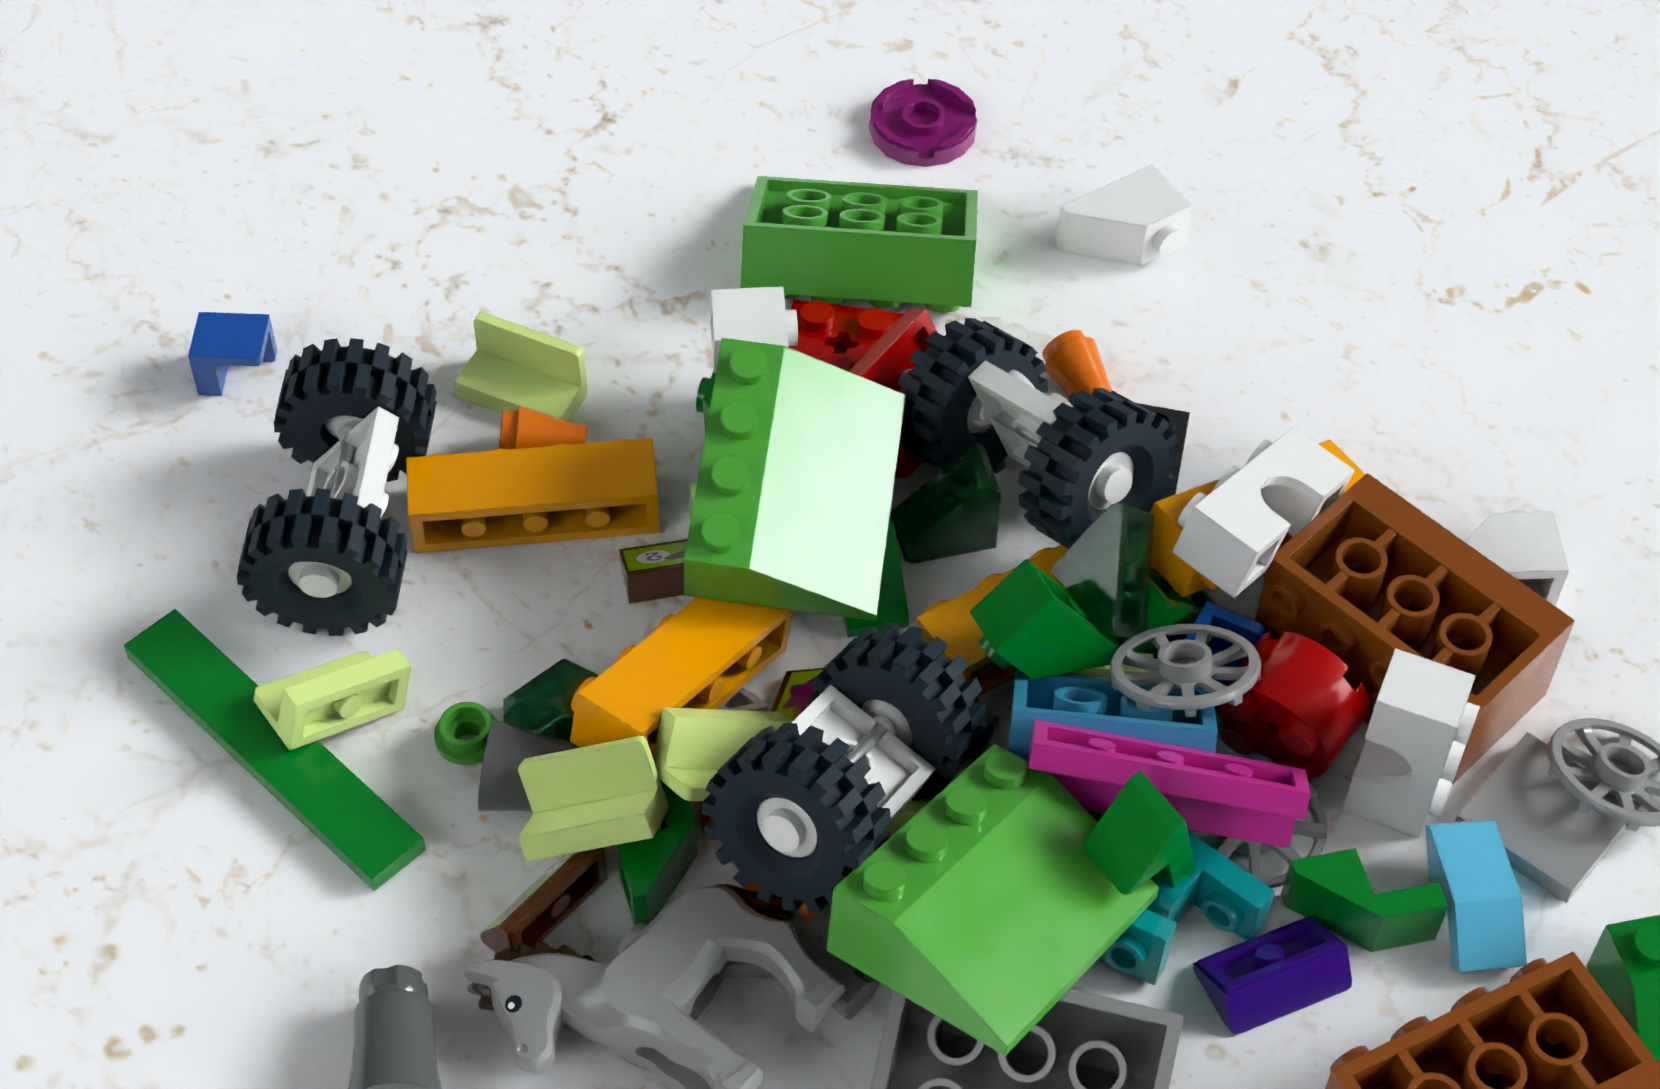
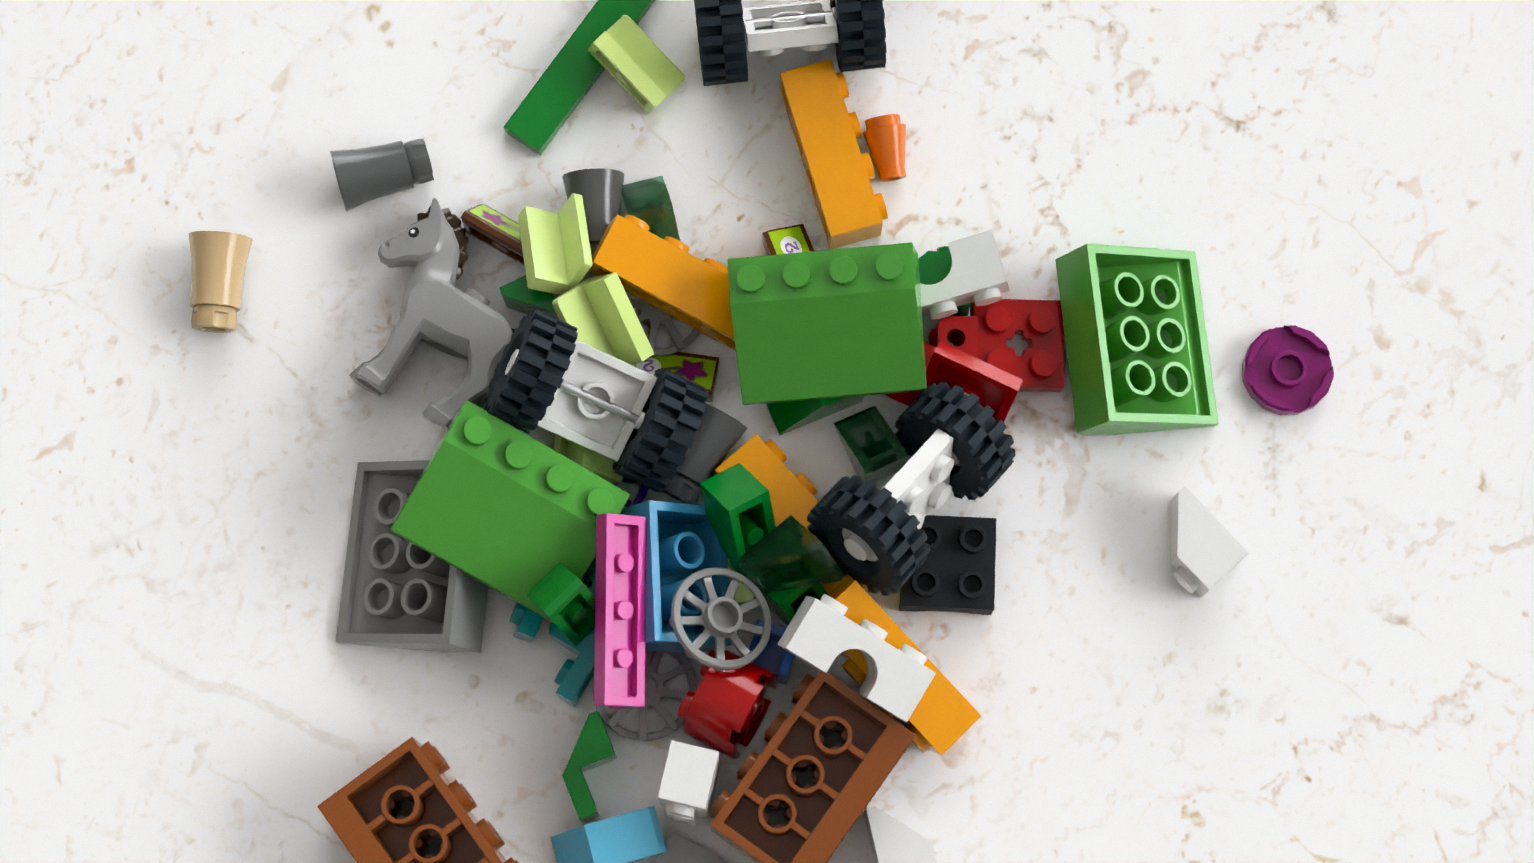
camera: 80 degrees right, 25 degrees up
(458, 721) = (627, 146): bright green plate -> none
(522, 369) = (938, 122): yellowish green panel -> none
(1075, 363) = (1030, 526): orange cone -> none
(1275, 974) = (533, 713): dark purple slope -> none

